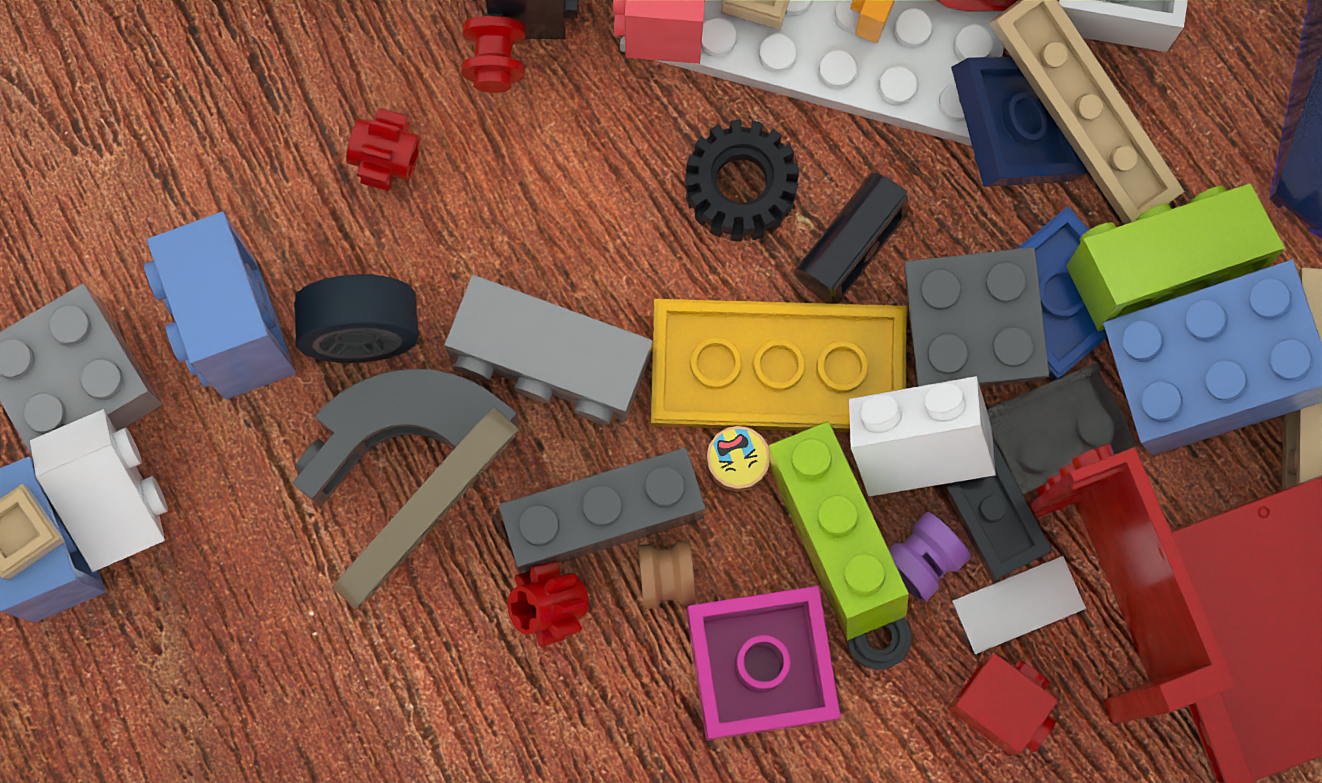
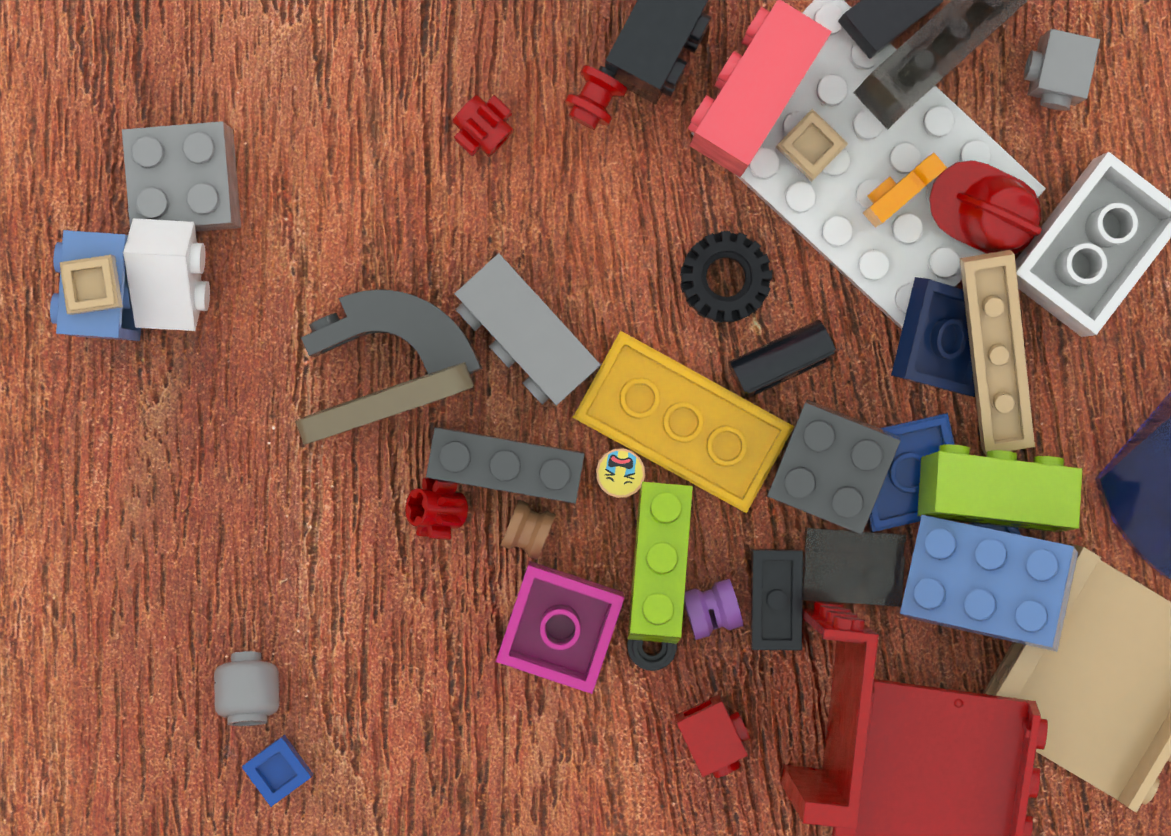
camera: 35 degrees right, 10 degrees up
(219, 307) = (307, 190): medium blue brick -> none
(355, 318) = (402, 242): black wheel -> none
(921, 436) = (752, 528): white brick -> none
(1019, 604) = (761, 671): white sticker -> none

